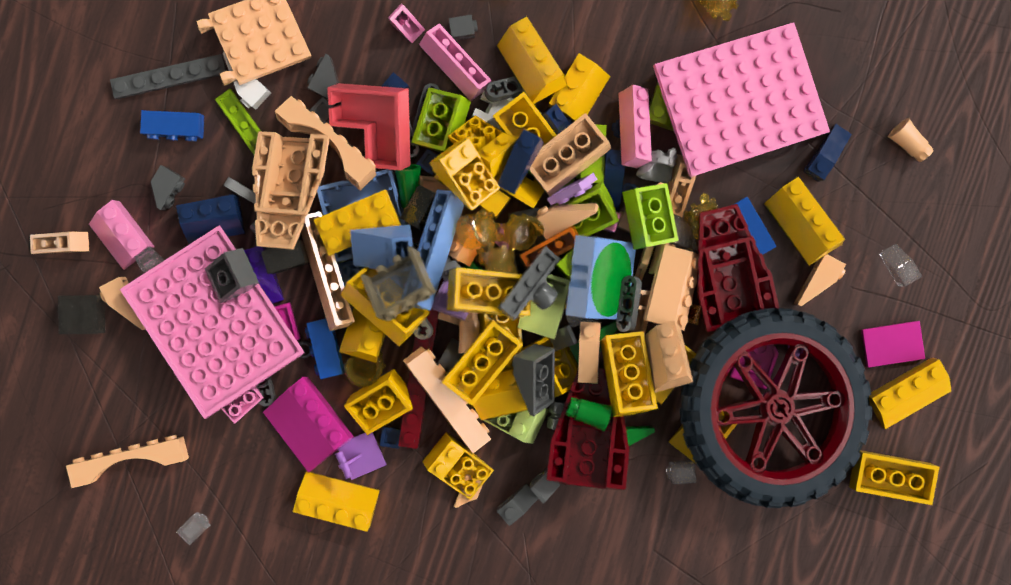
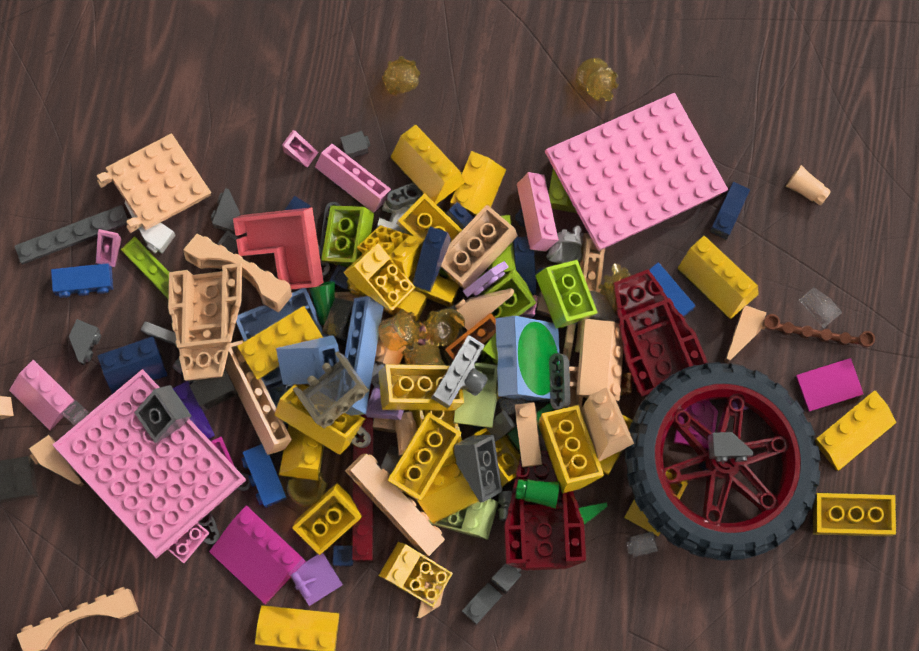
camera: 10 degrees left, 10 degrees down
(201, 96) = (107, 247): none -> bright pink slope
(785, 398) = (727, 446): none -> dark grey slope
(851, 275) = (772, 322): none -> copper bar

